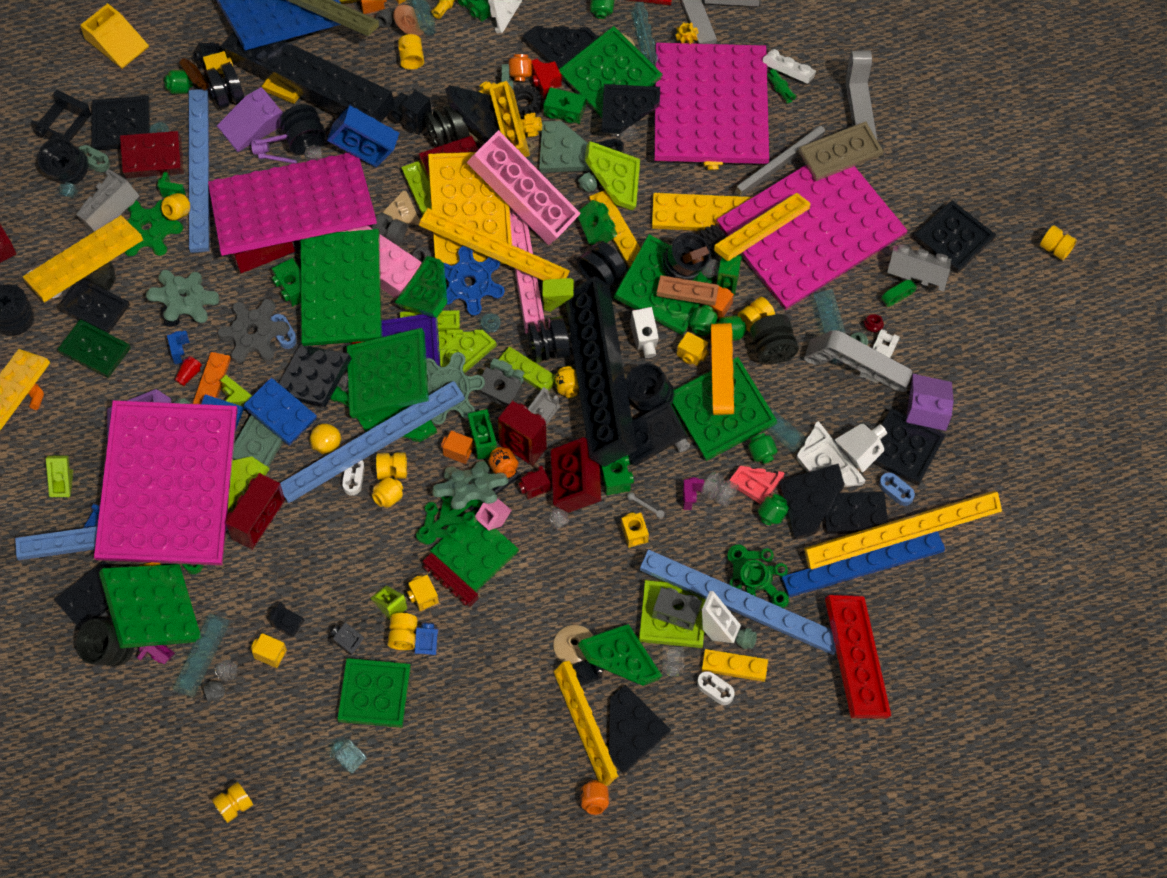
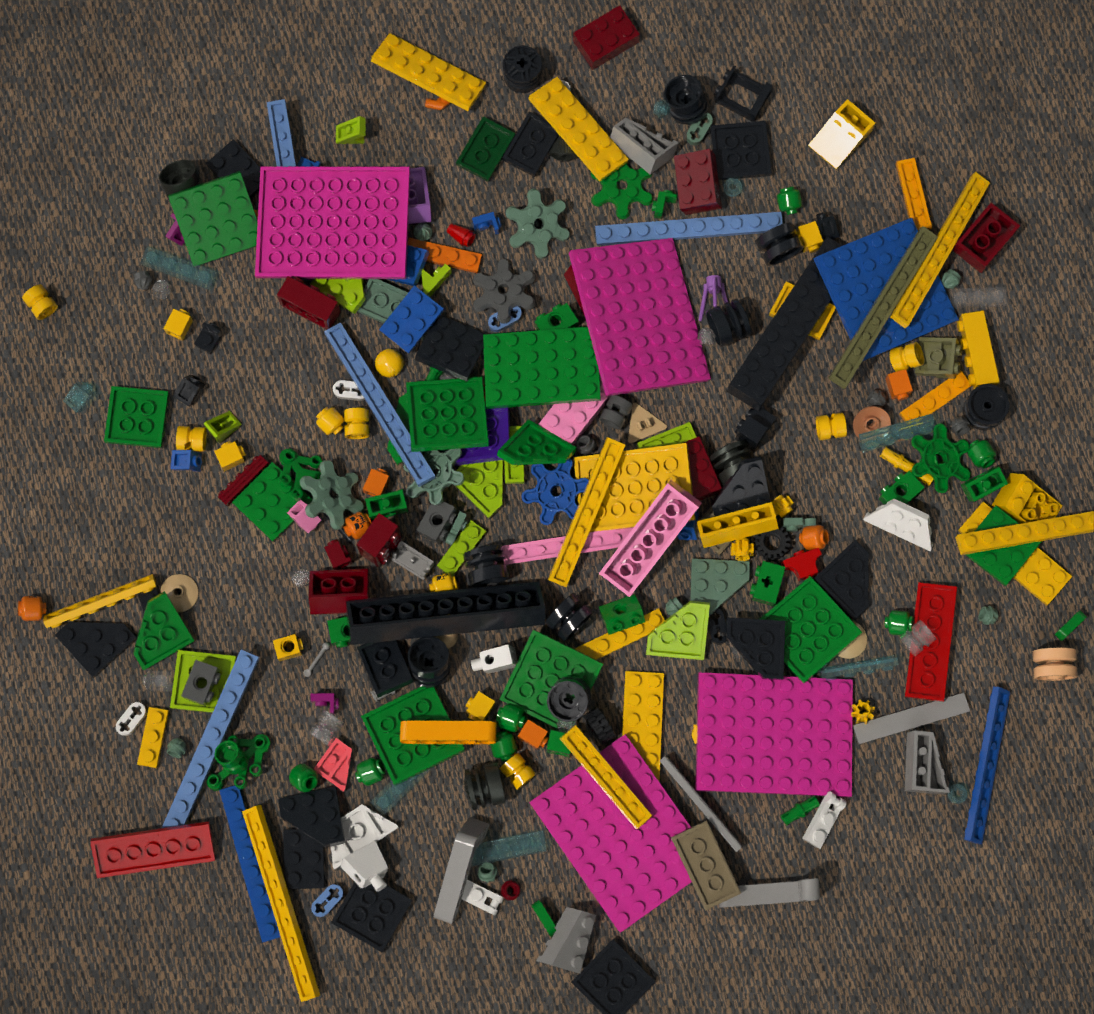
camera: 90 degrees right, 15 degrees up
(175, 206) = (638, 209): yellow head -> none
(194, 73) = (798, 213): reddish brown tile -> none
(250, 119) = (745, 274): medium lavender slope -> none
(363, 136) = (714, 380): blue brick -> none
(490, 327) = (515, 518): clear light blue plate -> none
(557, 292) = (537, 573): lime slope -> none
(687, 290) = (537, 701): nougat plate -> none
(696, 256) = (563, 705): reddish brown plate -> none
(718, 620) = (185, 721): white slope -> none
(930, 402) = (419, 939): medium lavender slope -> none

